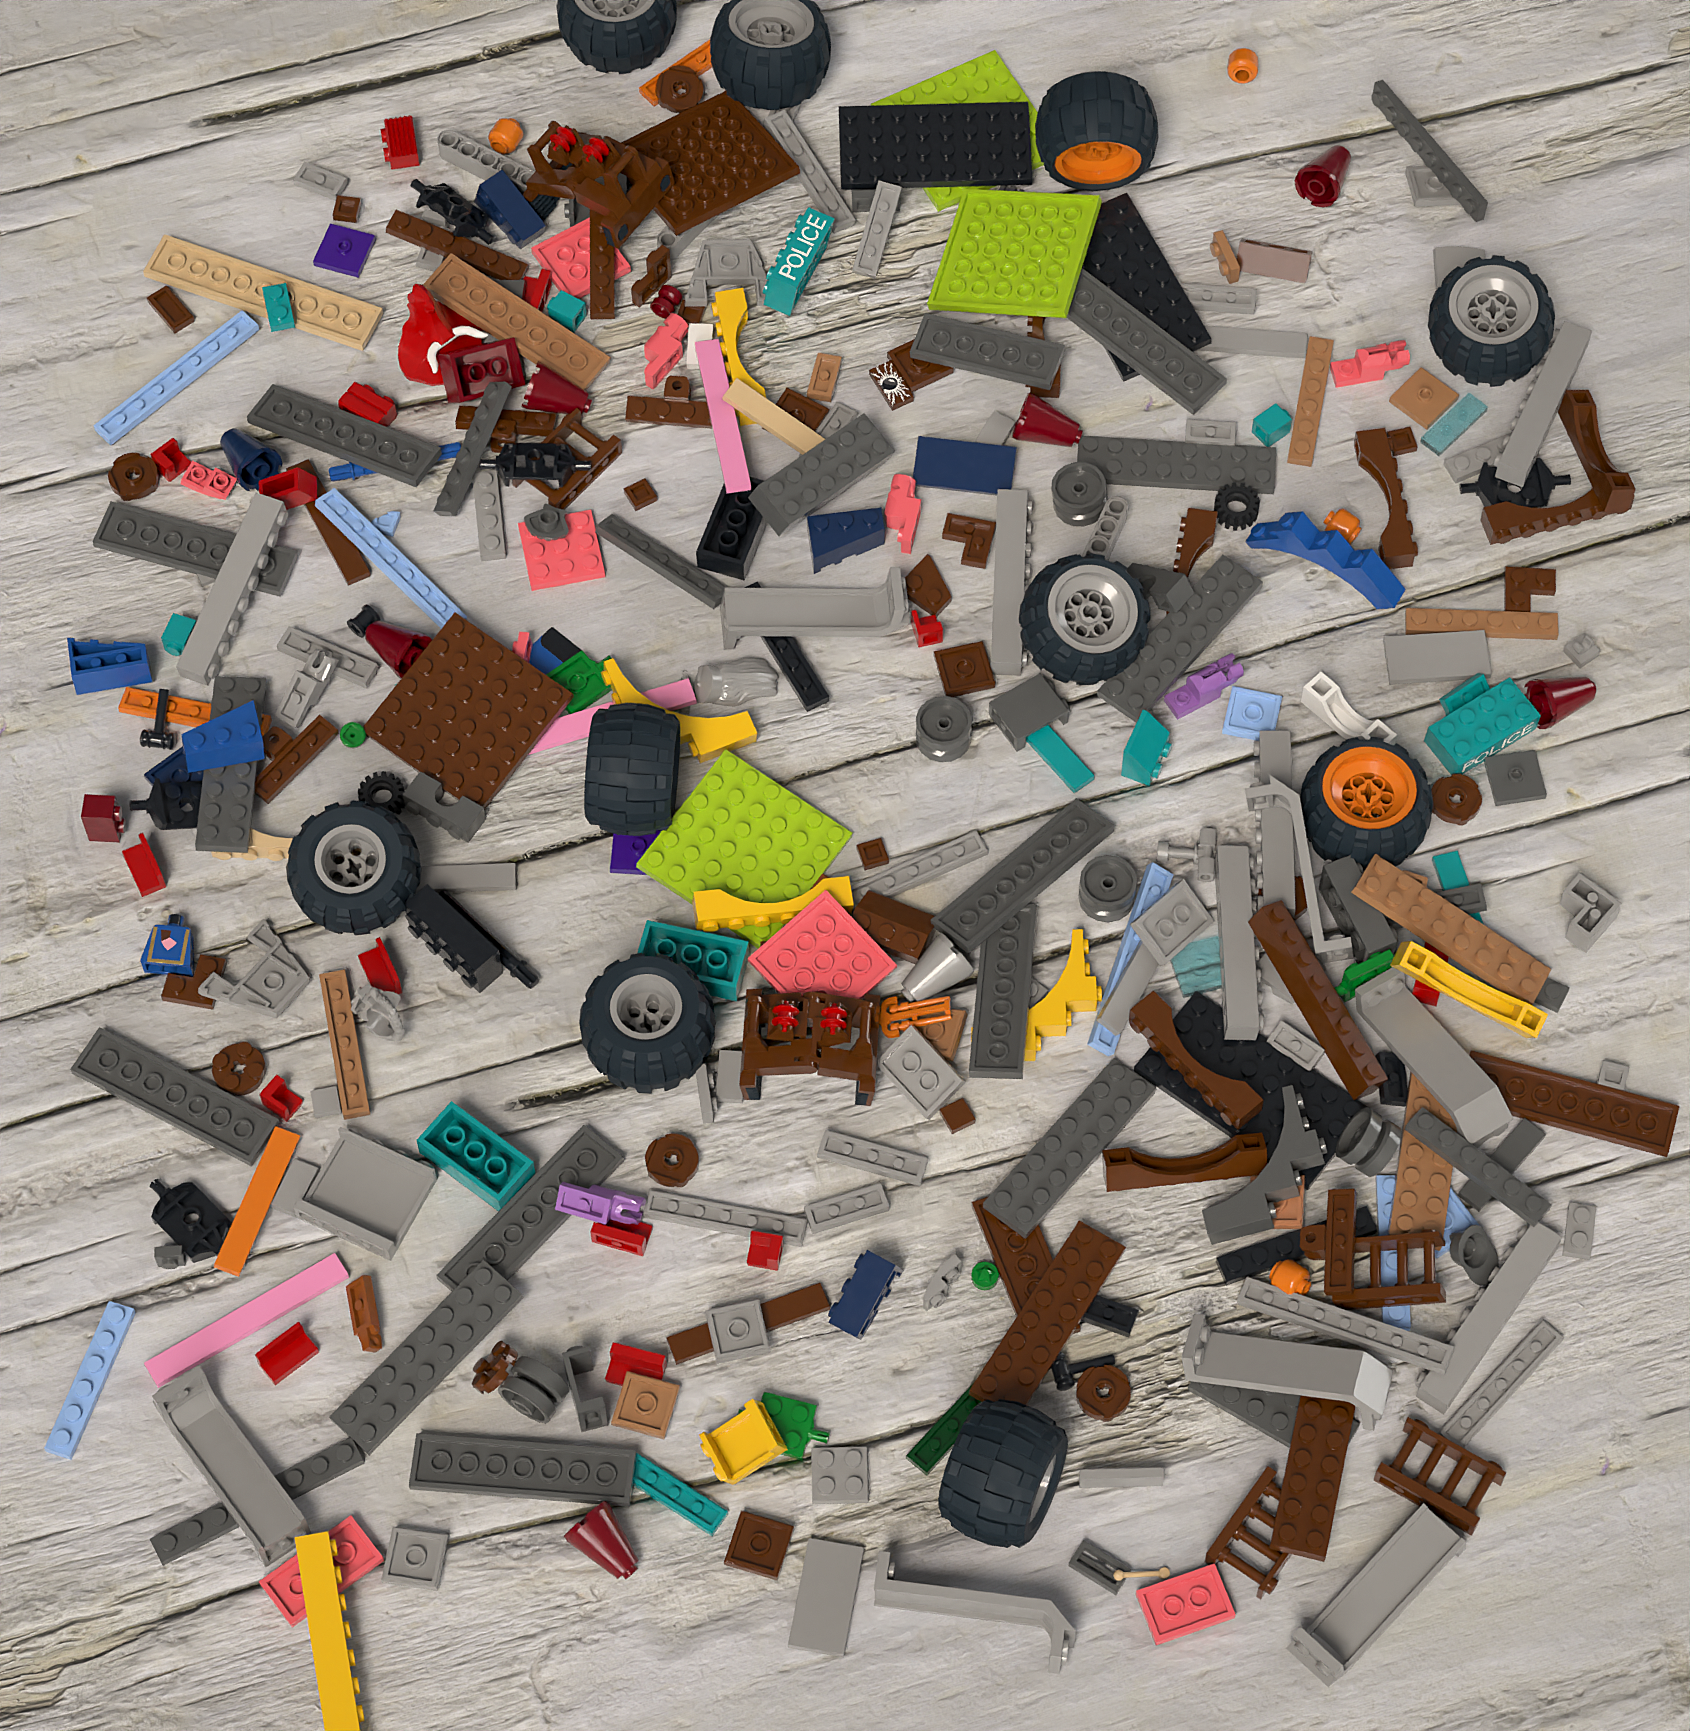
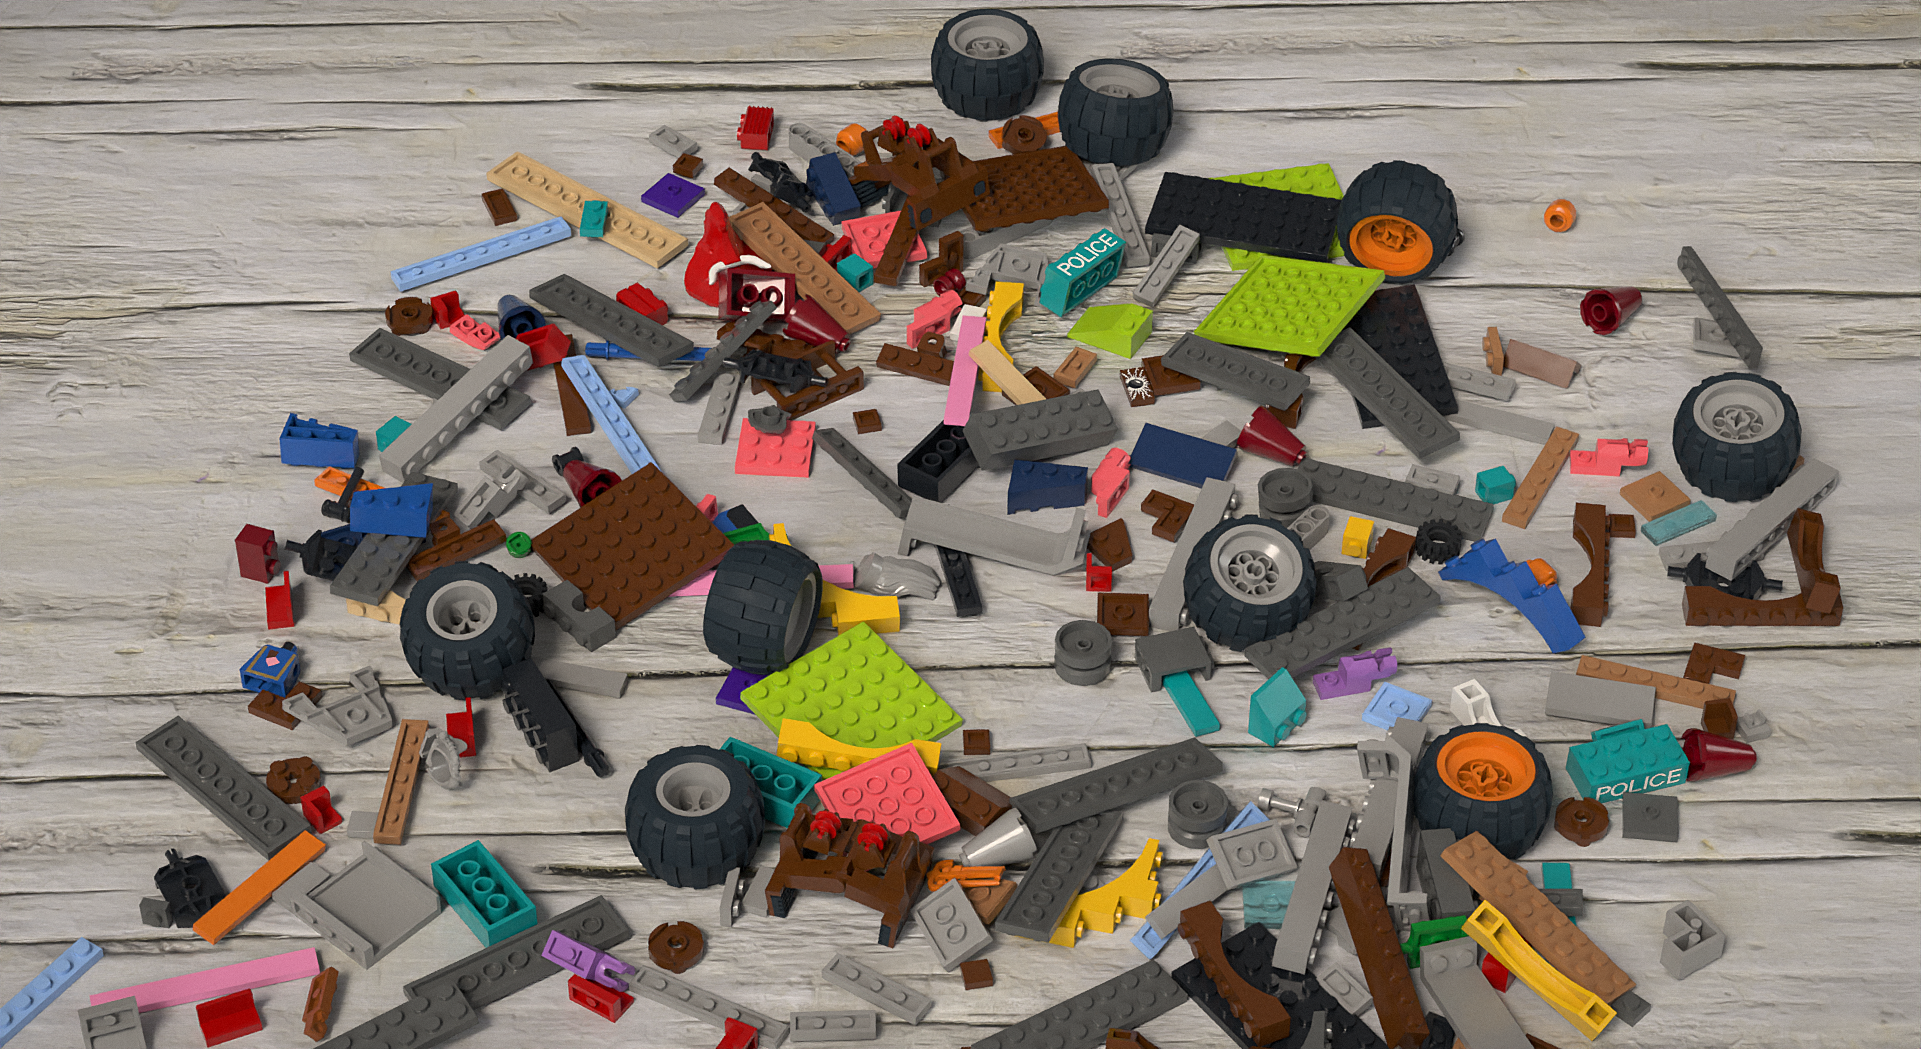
camera: 15 degrees right, 20 degrees down
(845, 317) = (1114, 328): none -> lime slope
(1159, 521) = (1357, 537): none -> yellow brick
(1551, 653) = (1719, 717): none -> reddish brown panel

